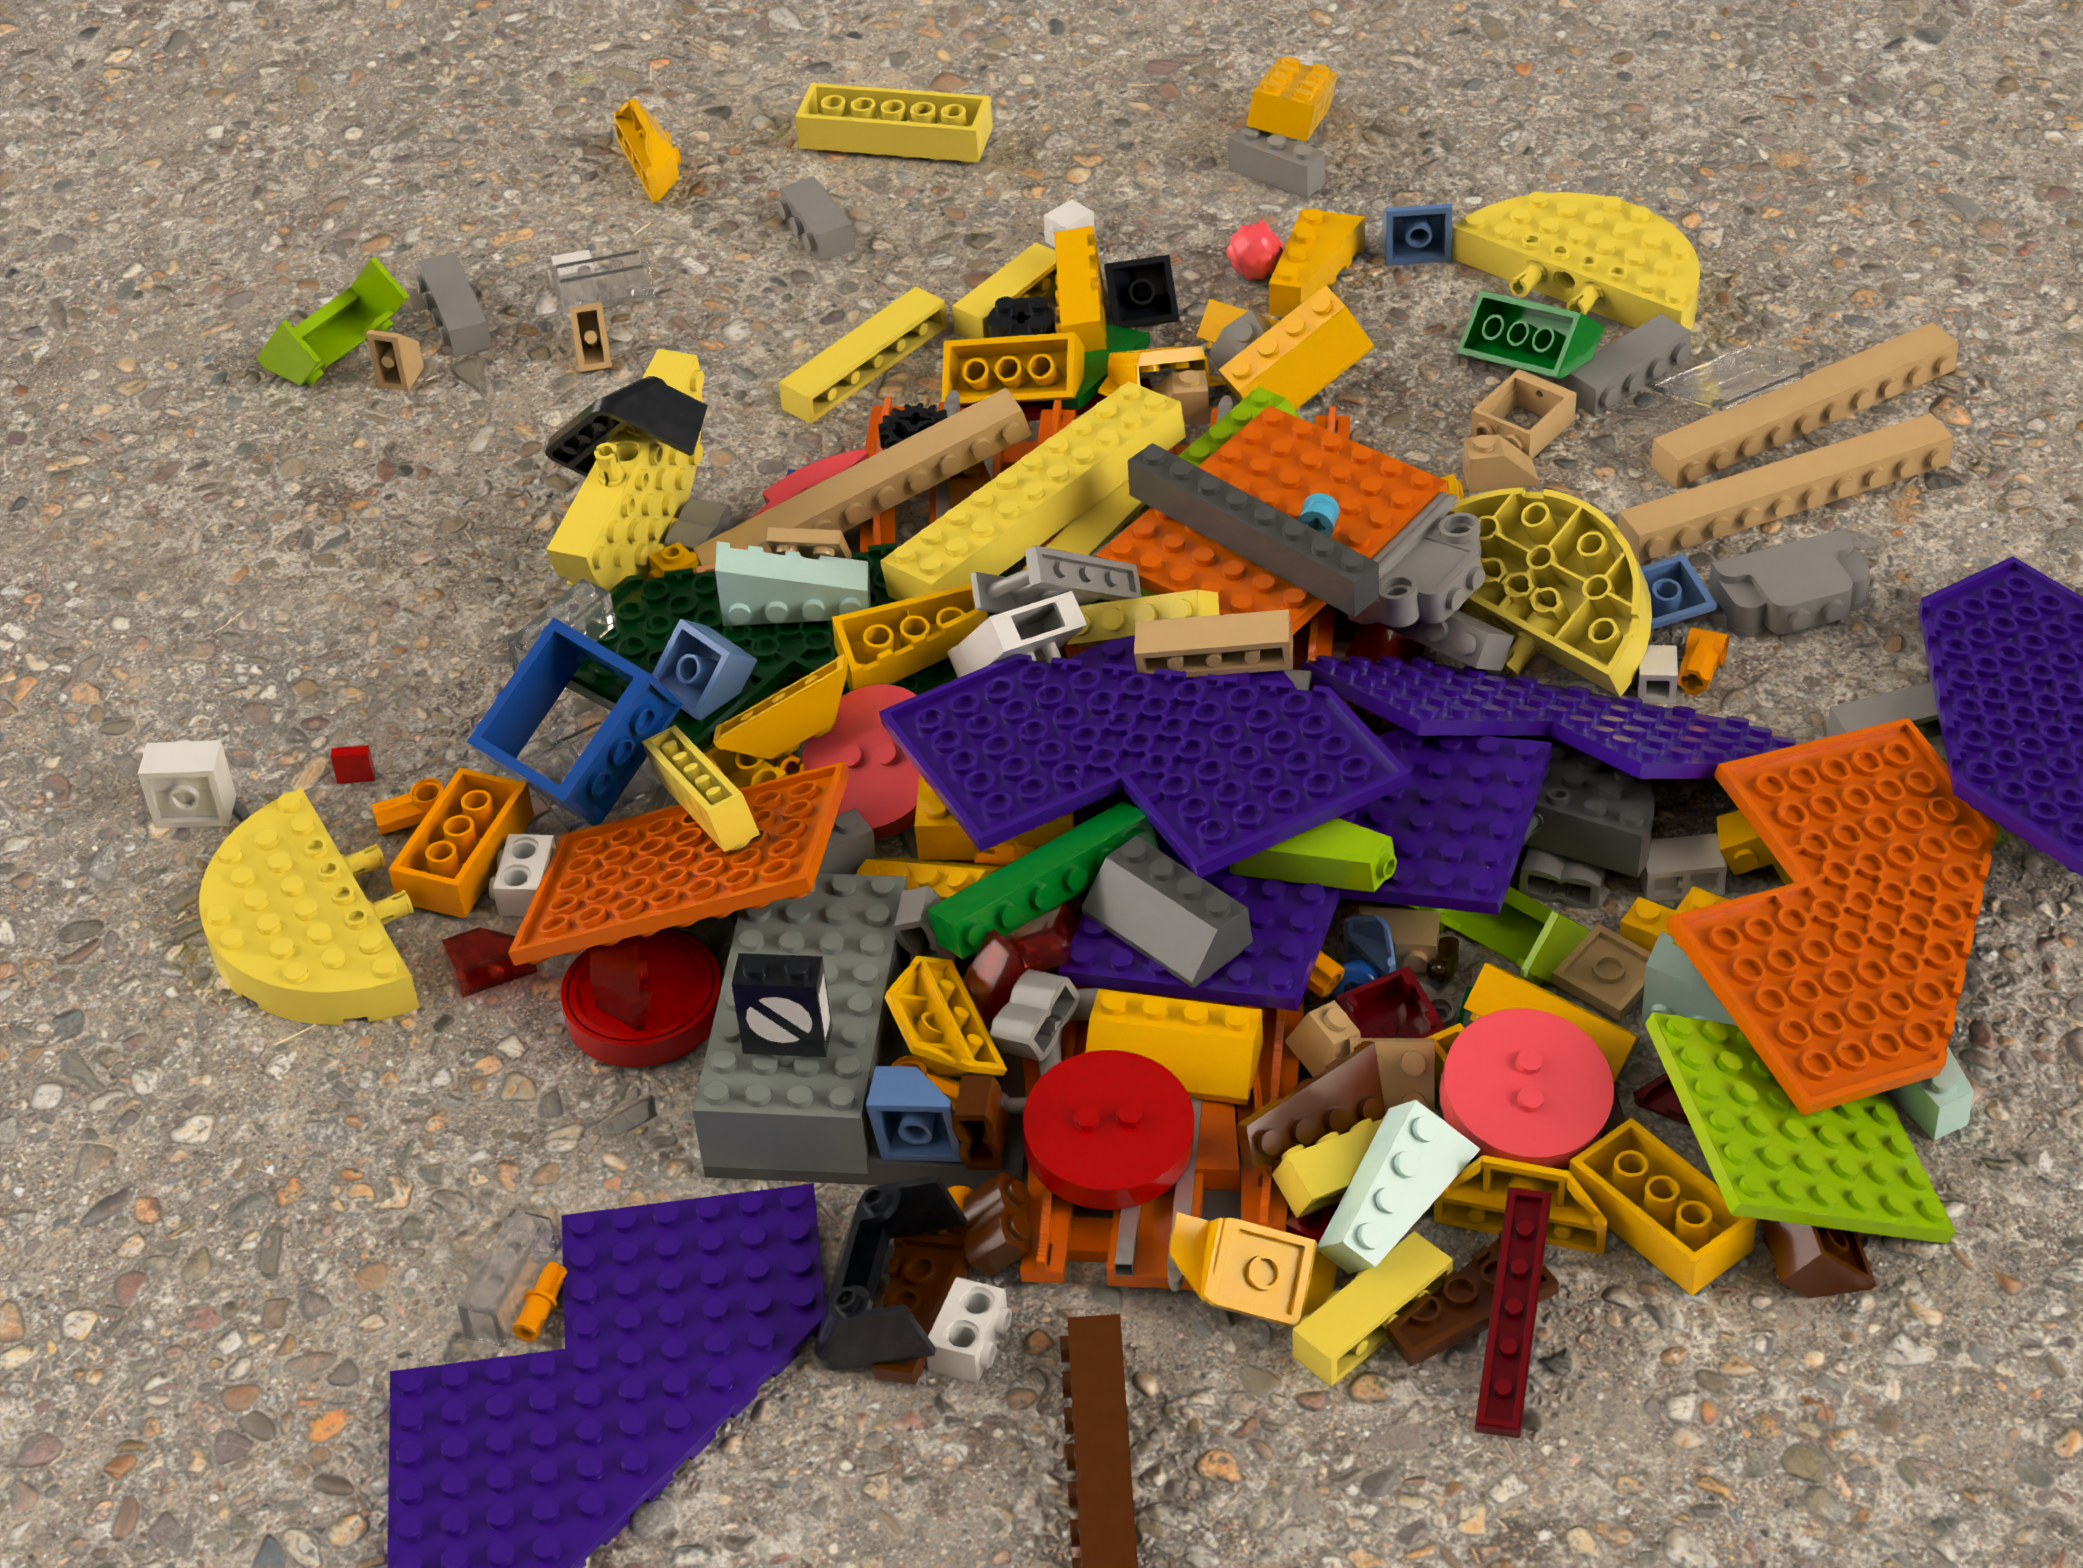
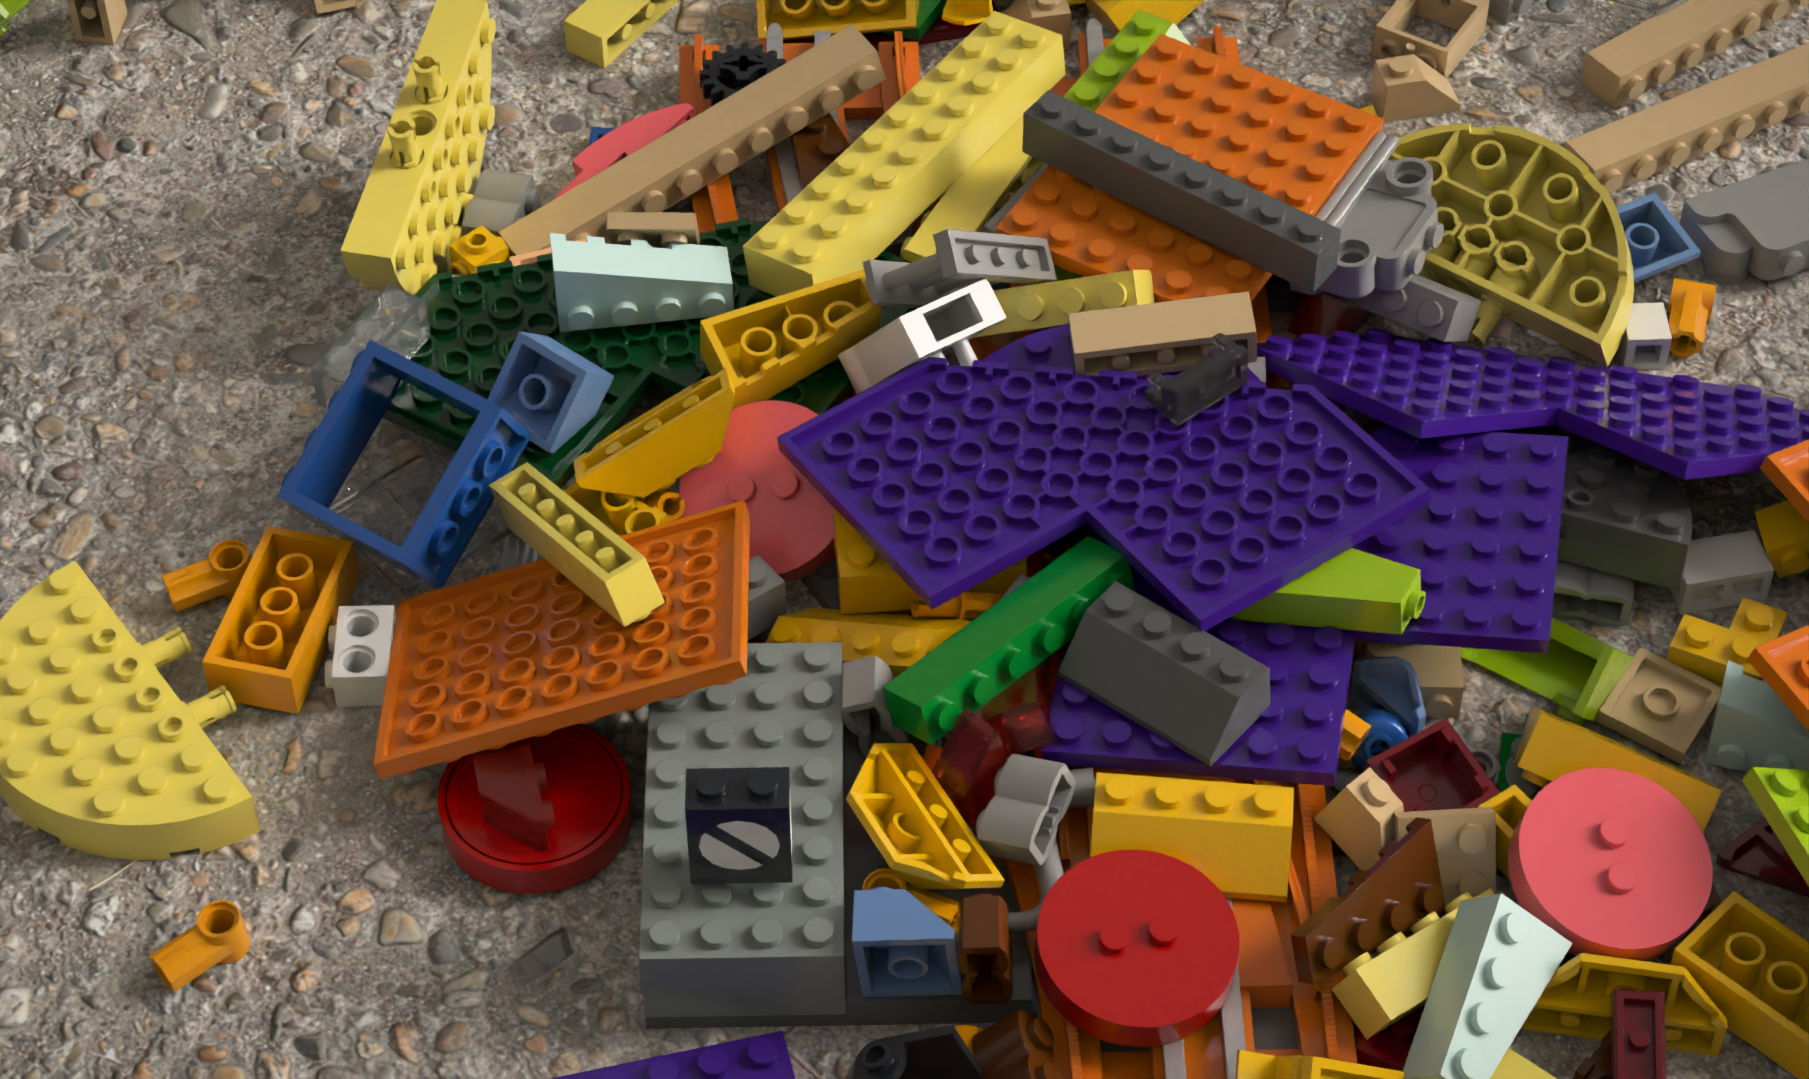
camera: 10 degrees left, 5 degrees up
(353, 764) = (128, 524): red tile -> none
(367, 1084) = (203, 945): none -> light orange piece
(482, 961) = (330, 767): clear red slope -> none
(642, 405) = (436, 68): black windscreen -> none
(1234, 681) = (1200, 383): none -> clear smoke hinge
(1320, 513) = (1253, 166): medium azure wheel -> none
(1447, 963) = (1472, 708): dark brown arm -> none

